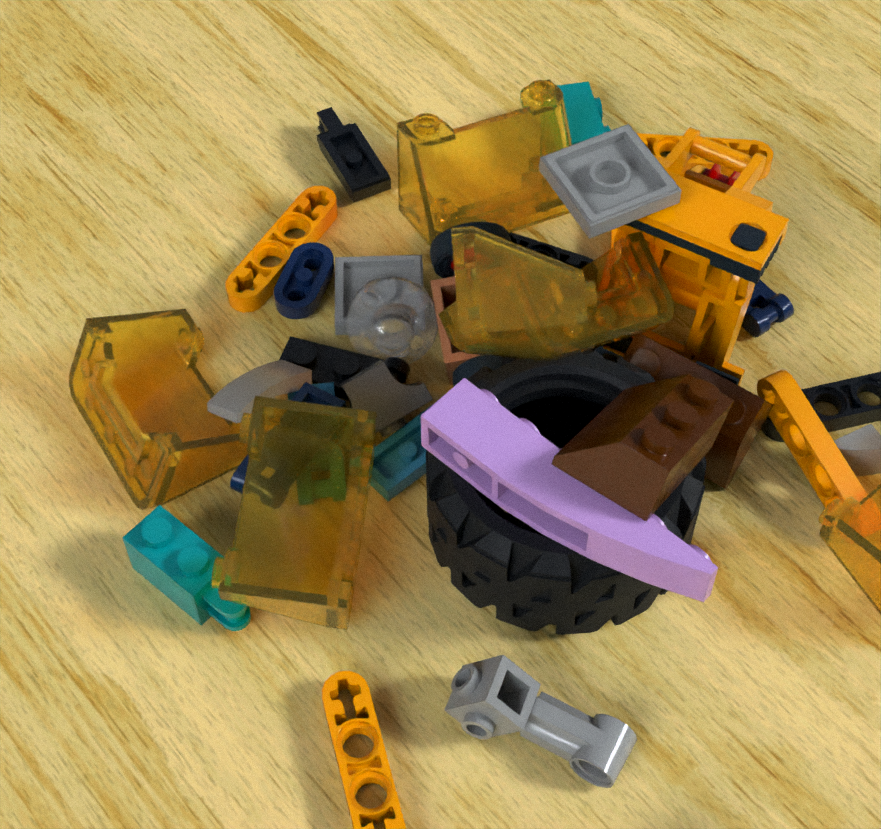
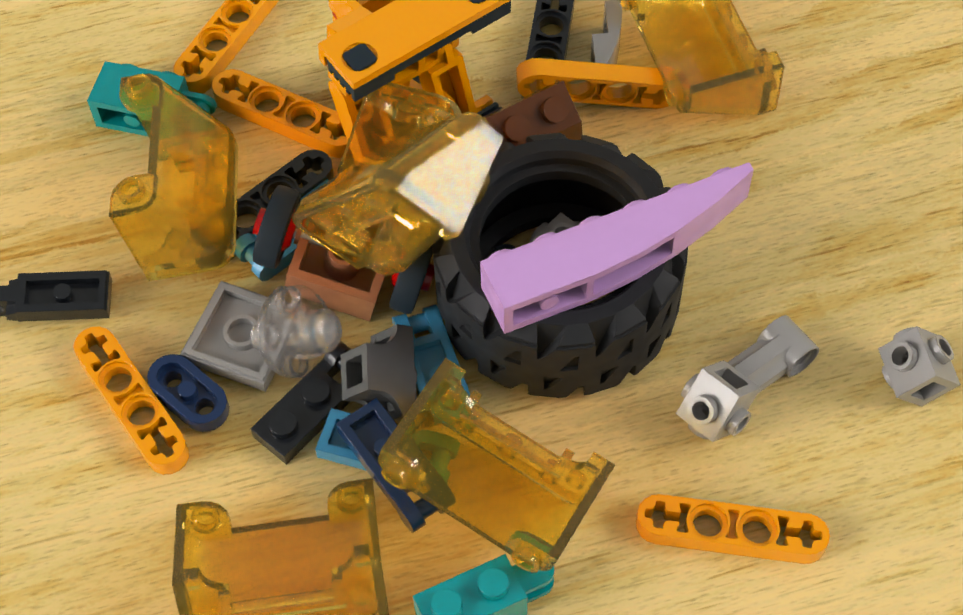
camera: 65 degrees left, 5 degrees up
(264, 381) = (317, 470): light grey slope -> none
(609, 180) = (373, 52): light grey plate -> none
(646, 441) = (610, 157): reddish brown slope -> none

